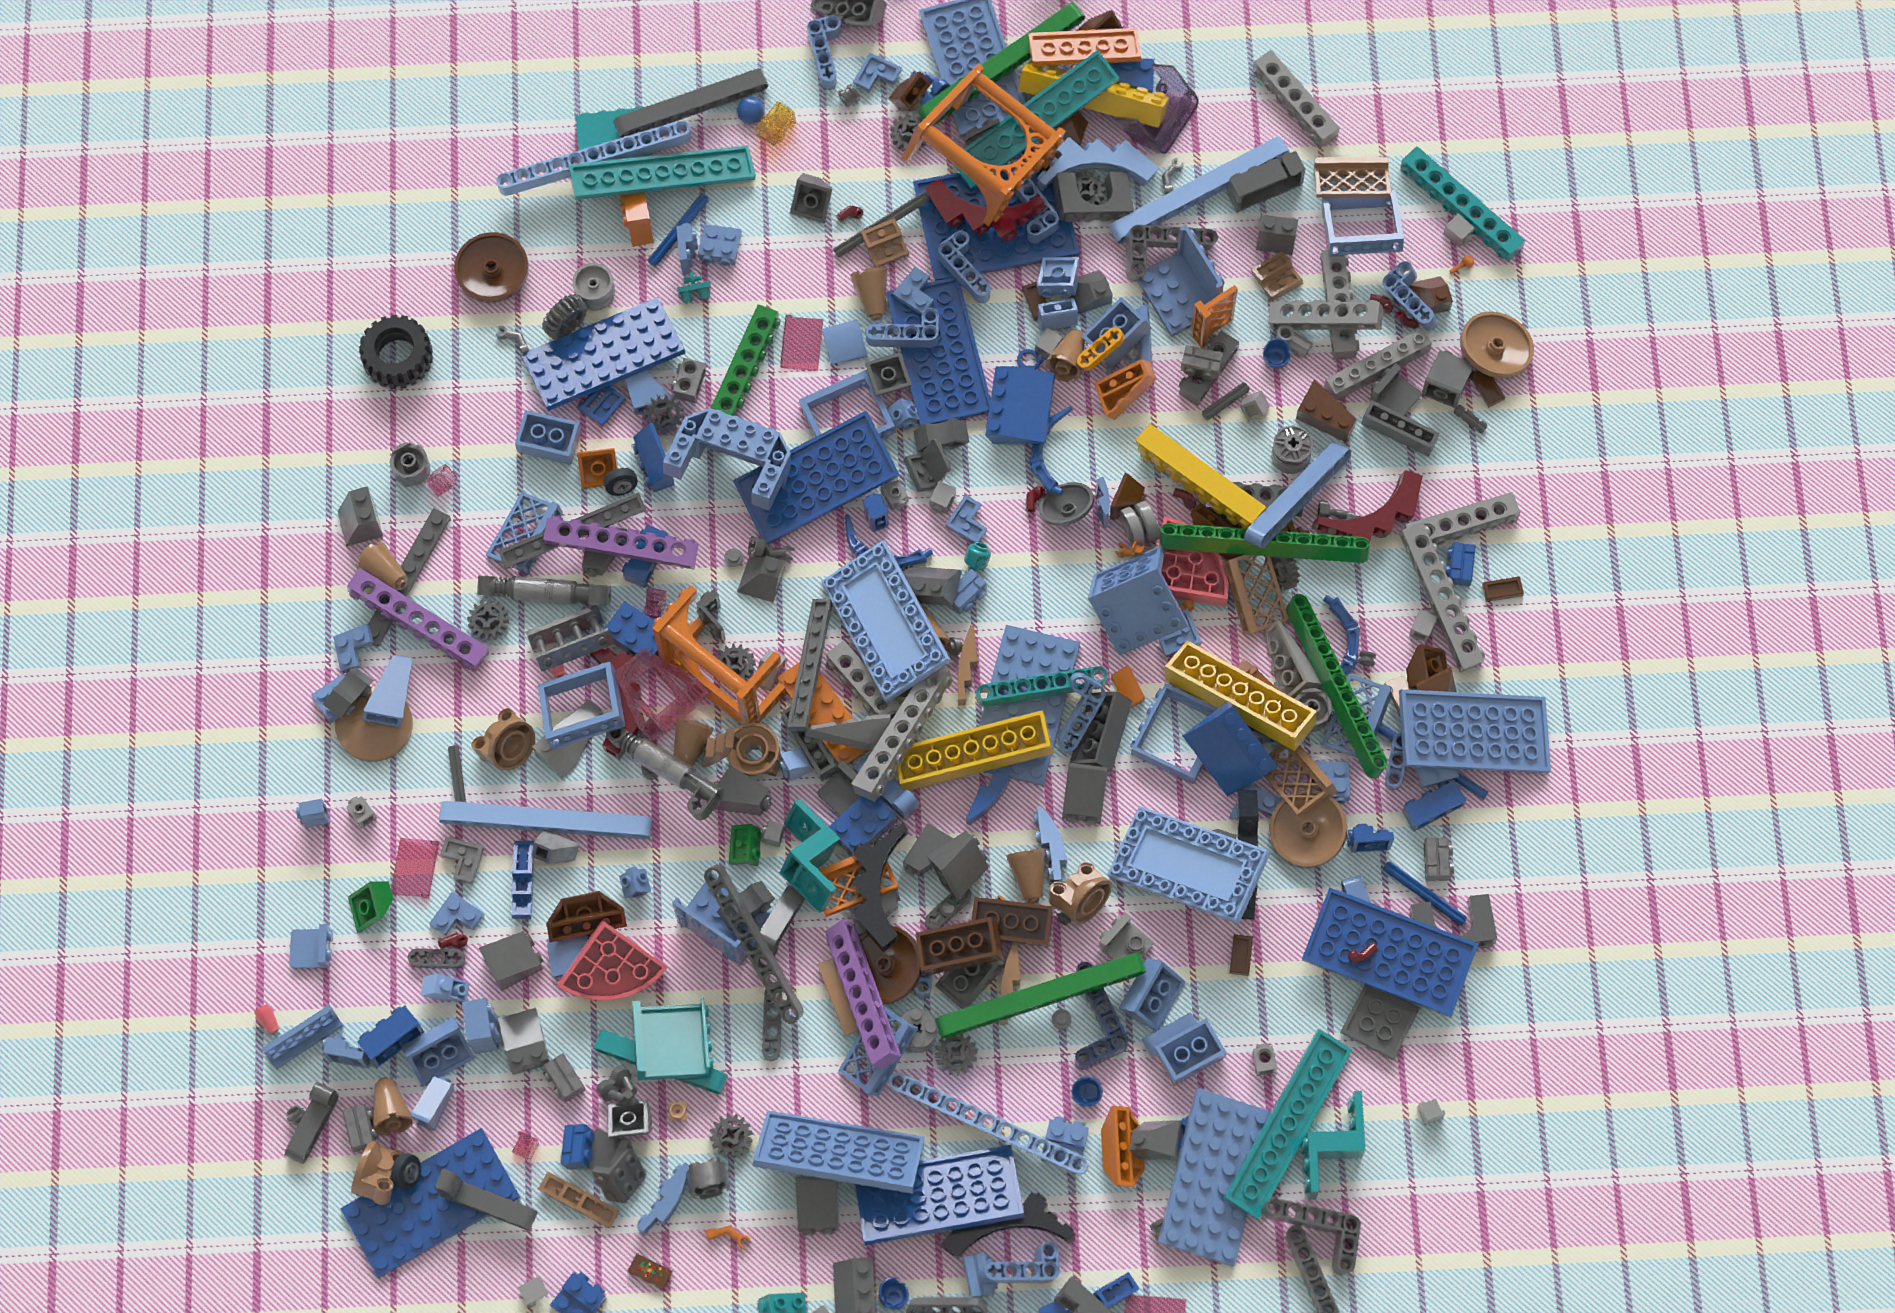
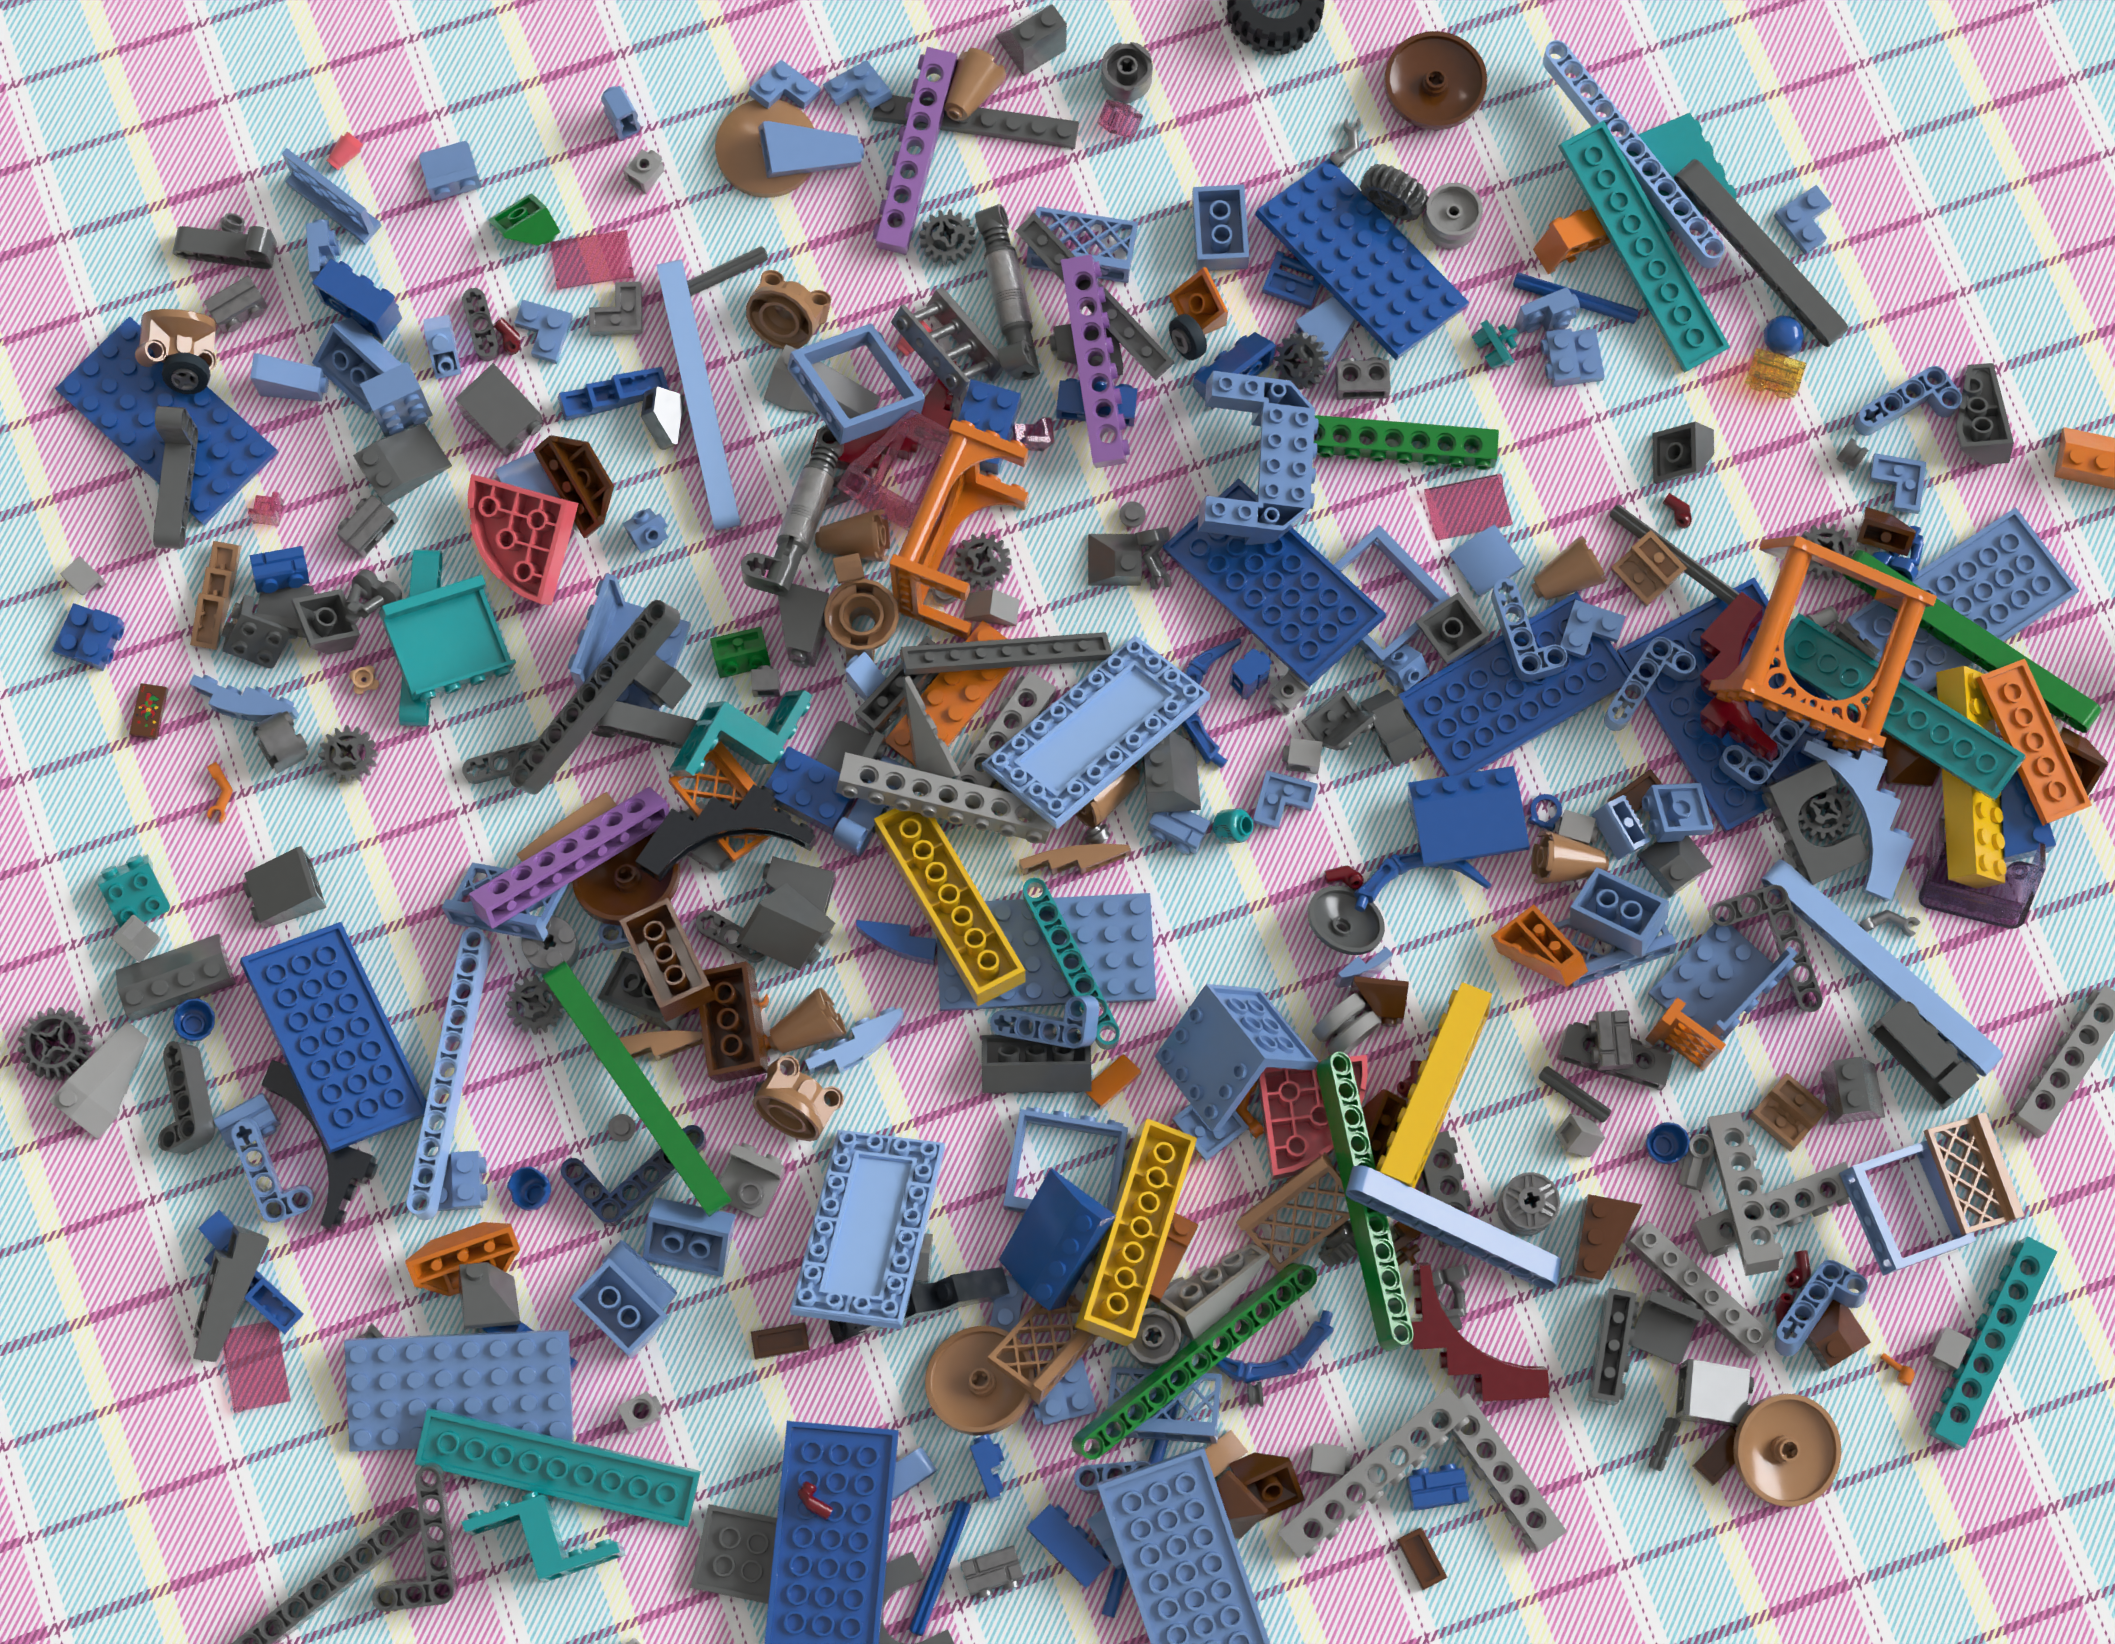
camera: 70 degrees right, 5 degrees up
(348, 692) = (789, 98): dark grey brick -> none
(389, 1108) = (269, 328): medium nougat cone -> none
(673, 76) = (1798, 219): none -> medium blue plate
(705, 607) = (1044, 497): dark grey bracket -> none
(838, 1151) = (354, 892): medium blue plate -> none
(1084, 793) = (937, 1066): dark grey slope -> none
(1100, 341) = (1576, 885): light orange beam -> none
(1134, 551) = (1306, 1024): orange arm -> none

